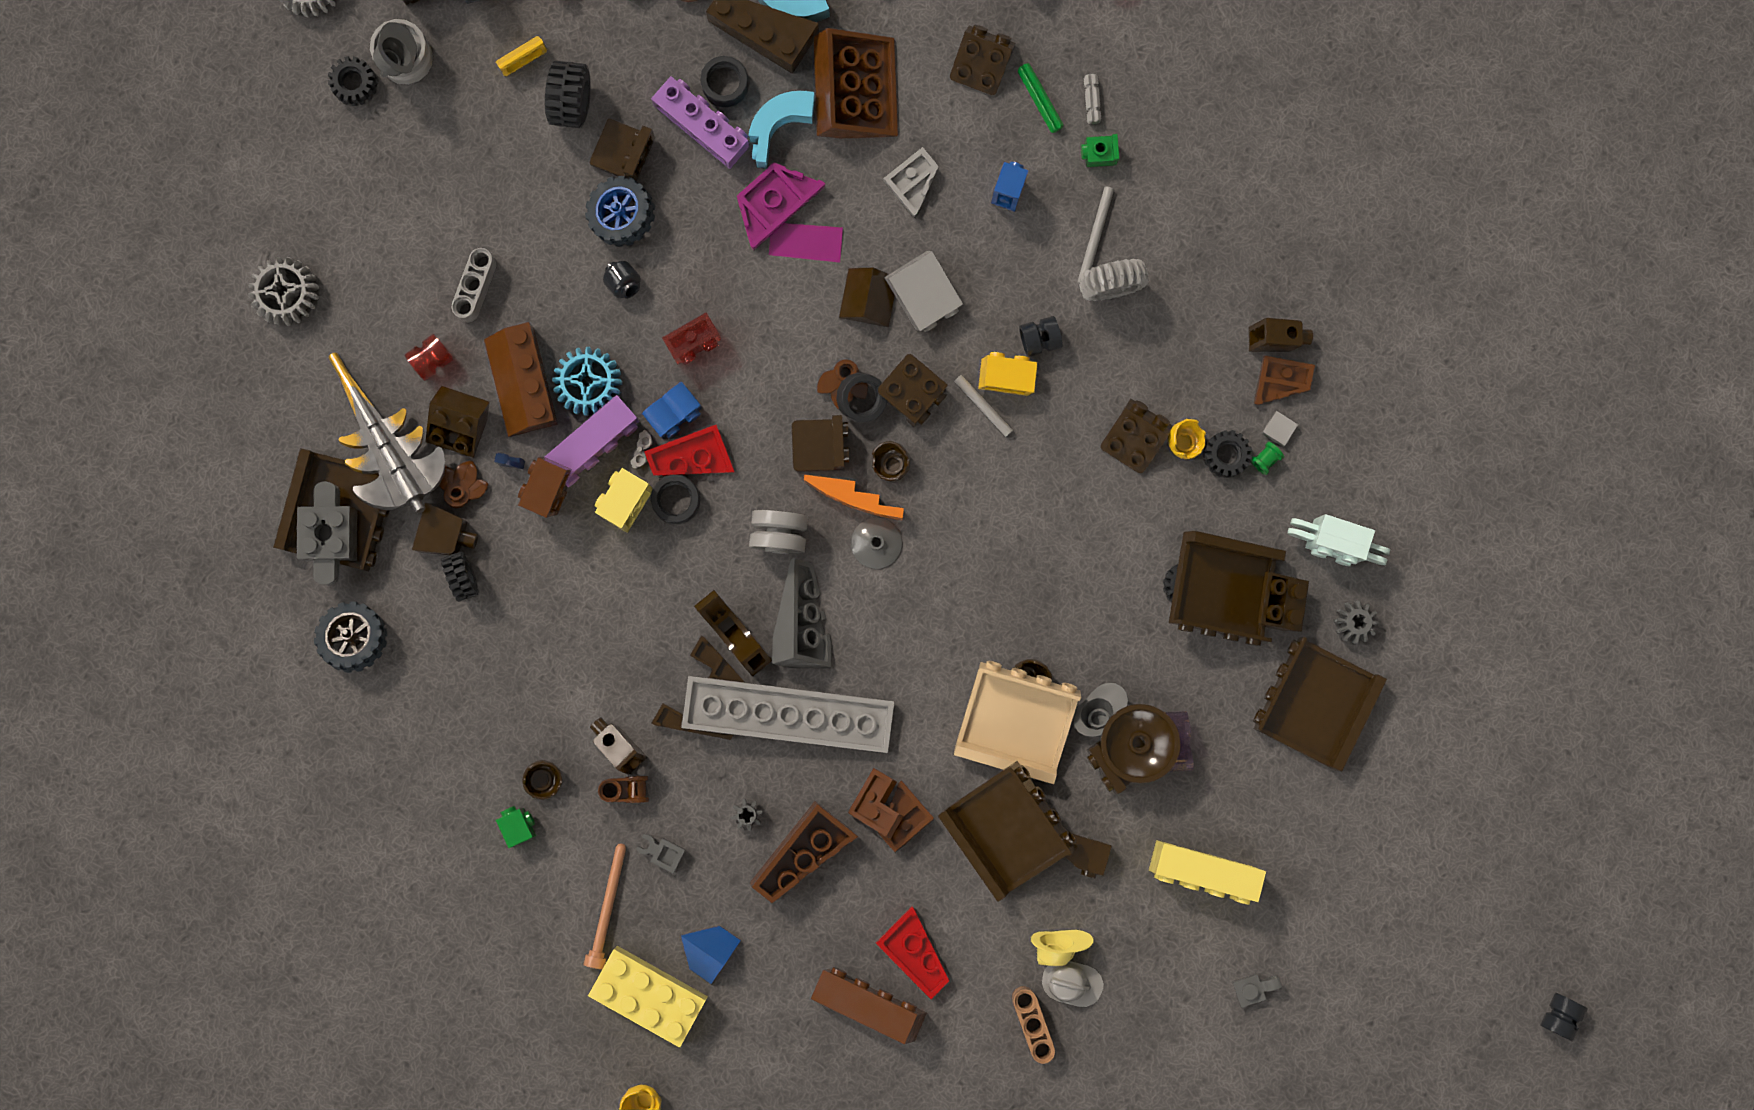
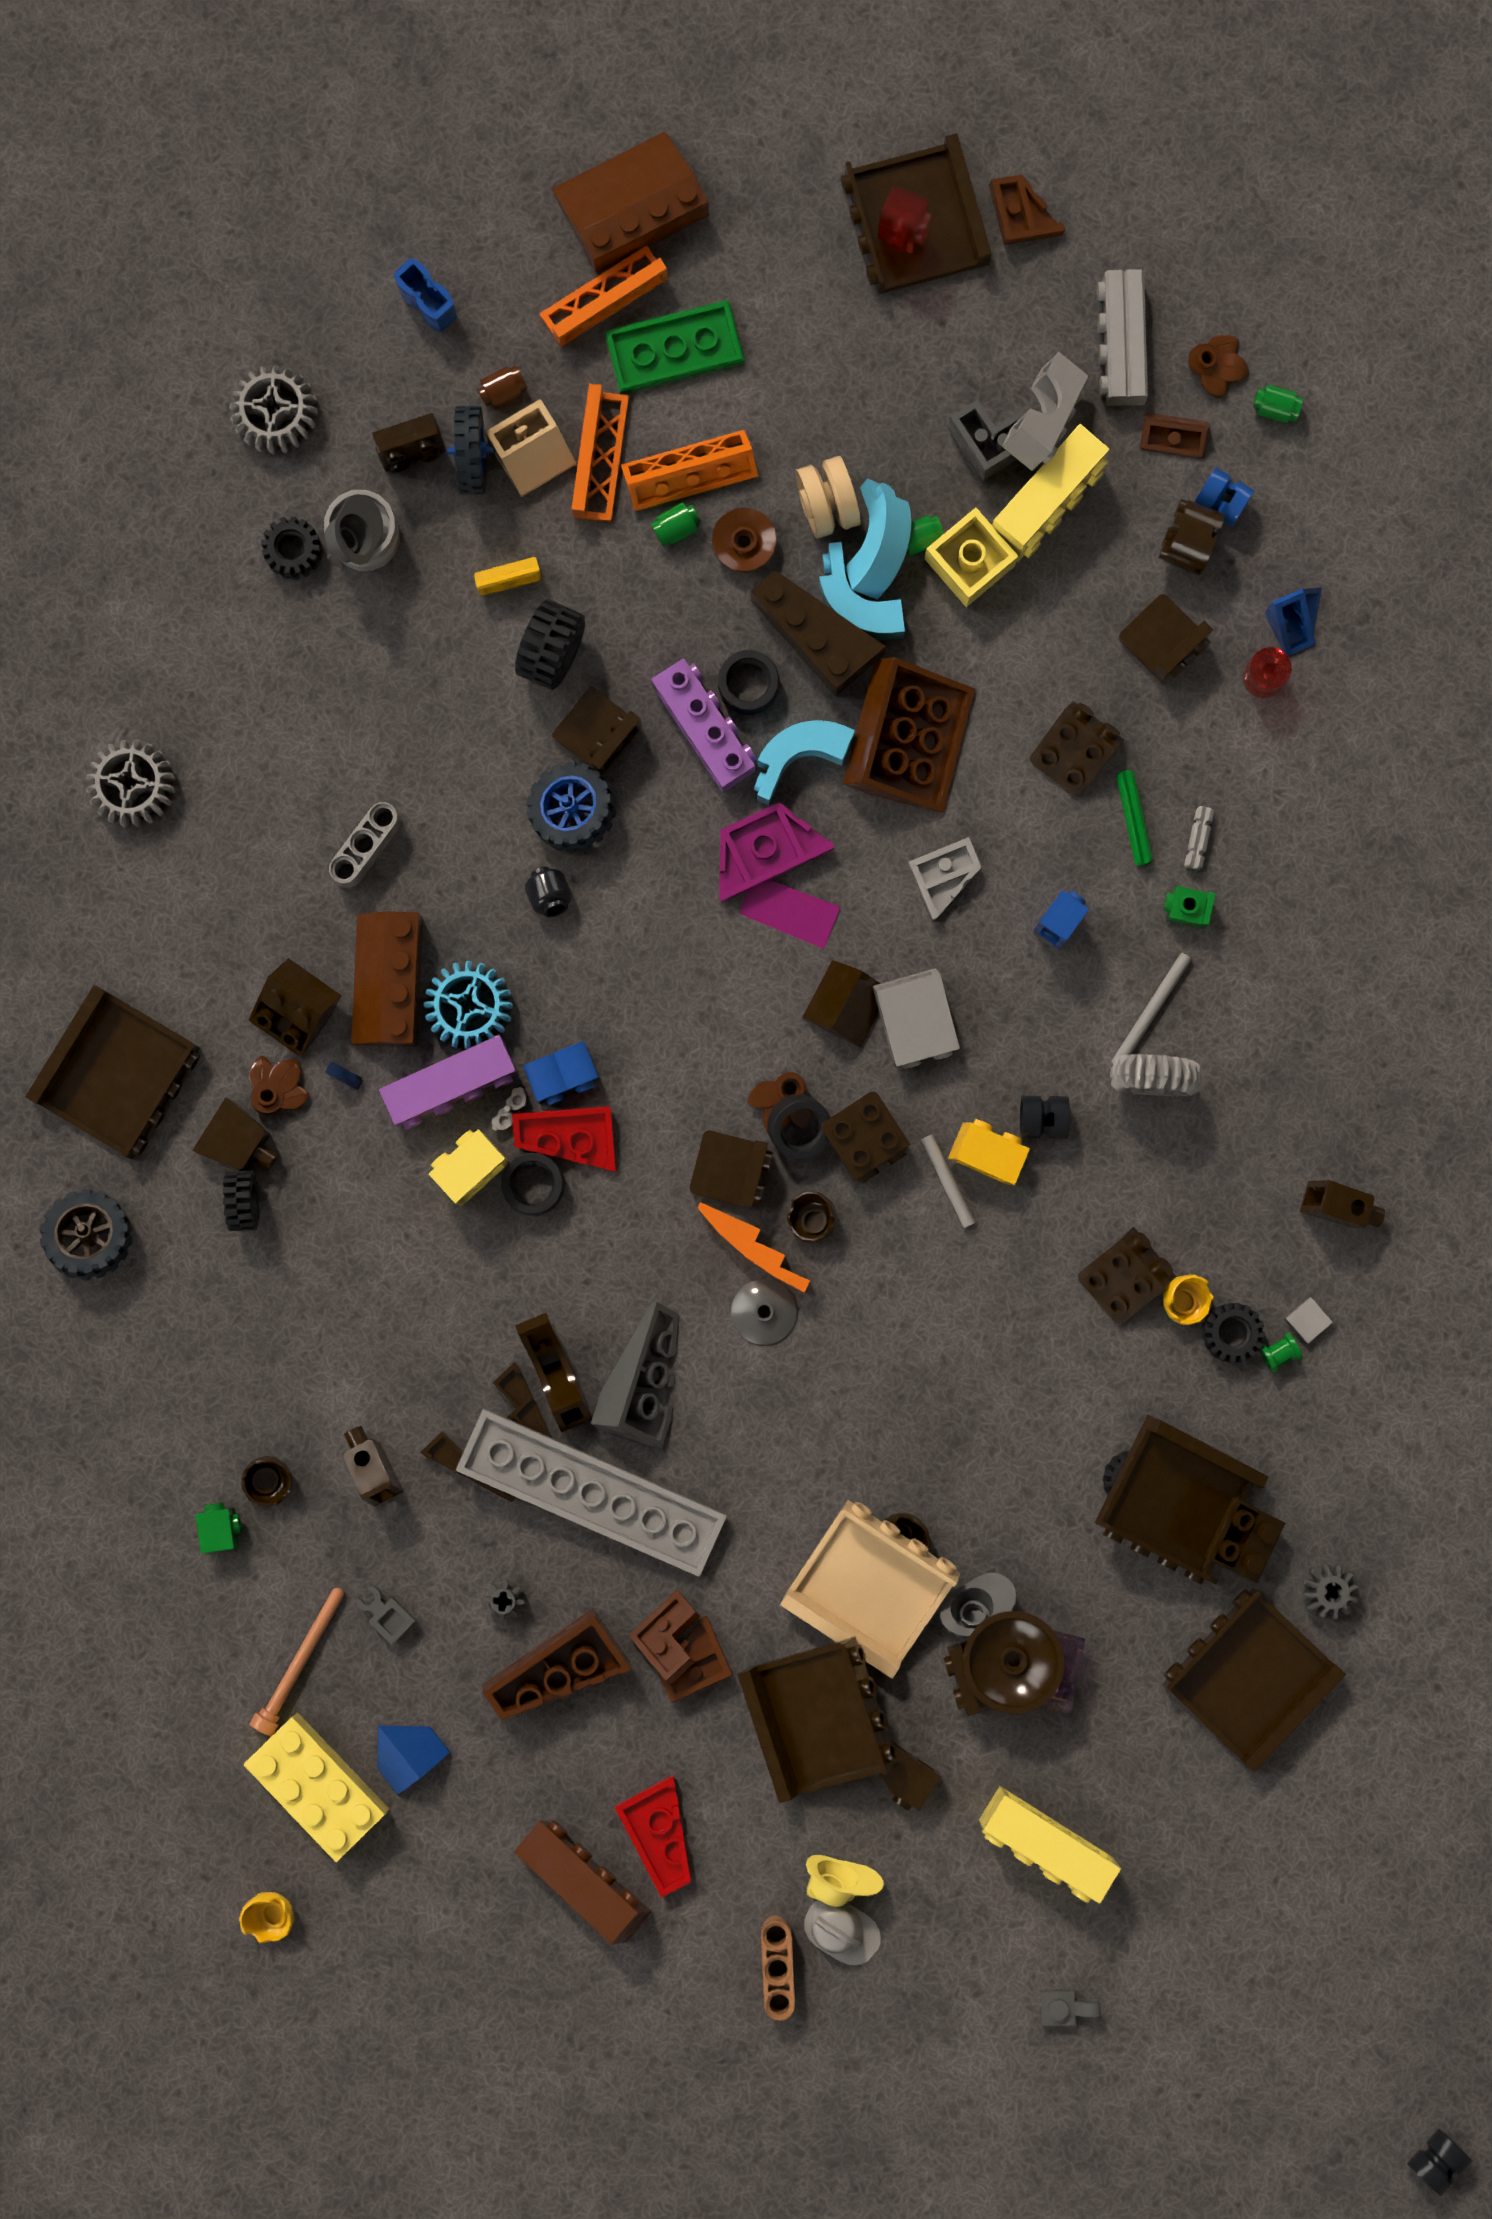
camera: 25 degrees right, 0 degrees up
(326, 533) = (95, 1099): dark grey brick -> none
(400, 477) = (206, 1059): flat silver animal -> none
(428, 357) = (283, 918): clear red wheel -> none
(545, 487) = (377, 1124): reddish brown brick -> none
(626, 789) = (365, 1524): reddish brown piece -> none
(691, 339) = (612, 992): clear red brick -> none
(778, 534) = (647, 1263): light grey wheel -> none
(1282, 378) = (1330, 1259): reddish brown wing -> none
(1339, 539) = (1339, 1482): light aqua brick -> none

